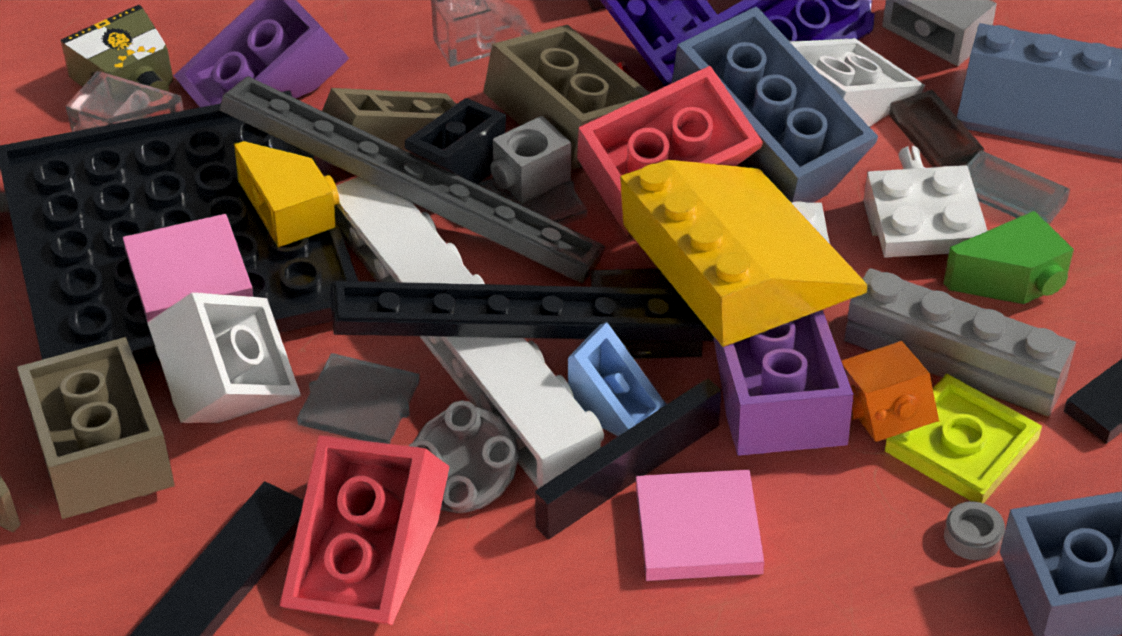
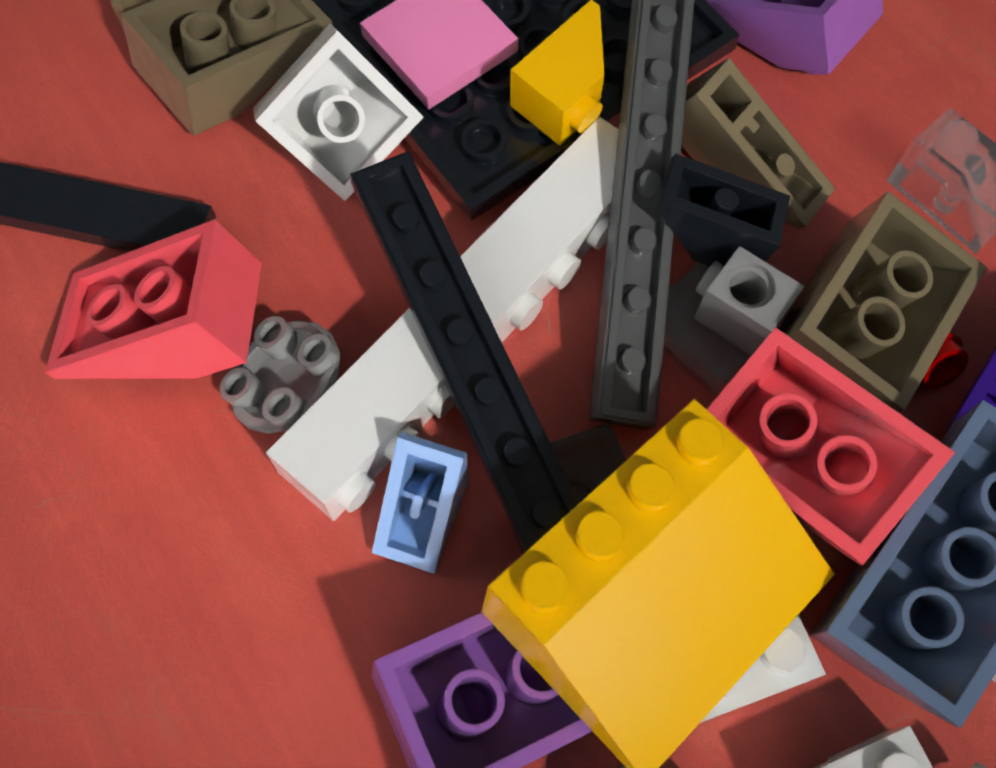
camera: 70 degrees right, 20 degrees up
(358, 399) = (346, 260): clear light blue piece -> none
(625, 457) = (325, 548): black tile -> none
(699, 525) = (259, 658): bright pink tile -> none

